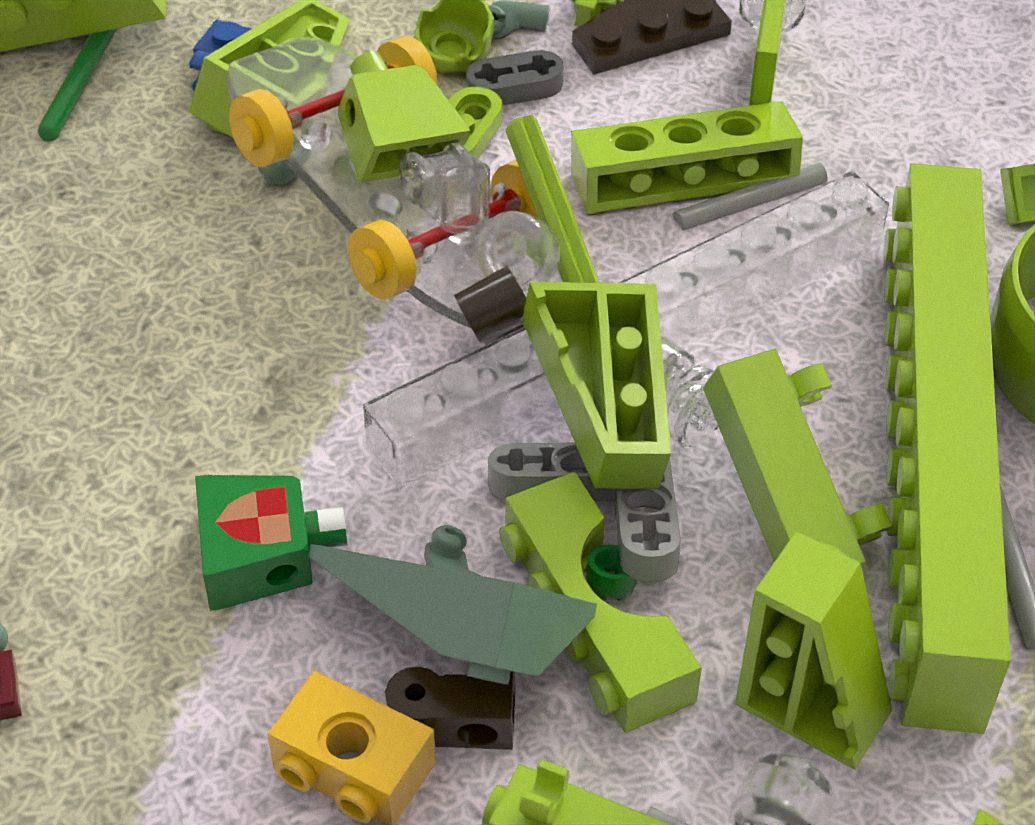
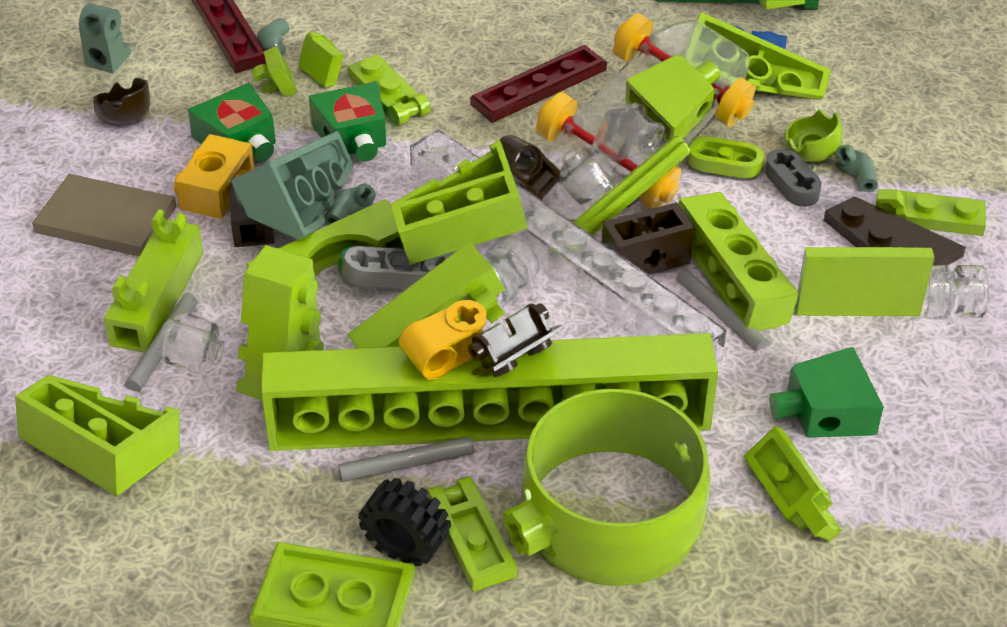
camera: 80 degrees right, 5 degrees down
(68, 564) = (320, 59): none -> lime tile
(81, 634) = (277, 72): none -> lime tile
(159, 488) = (397, 96): none -> lime plate
(216, 705) = (236, 116): none -> green torso
(218, 301) = (538, 83): none -> dark red tile
(646, 214) = (651, 238): none -> dark brown brick
(933, 118) = (830, 397): none -> green torso
(948, 407) = (441, 340): none -> yellow piece
(959, 337) = (499, 350): none -> hinge

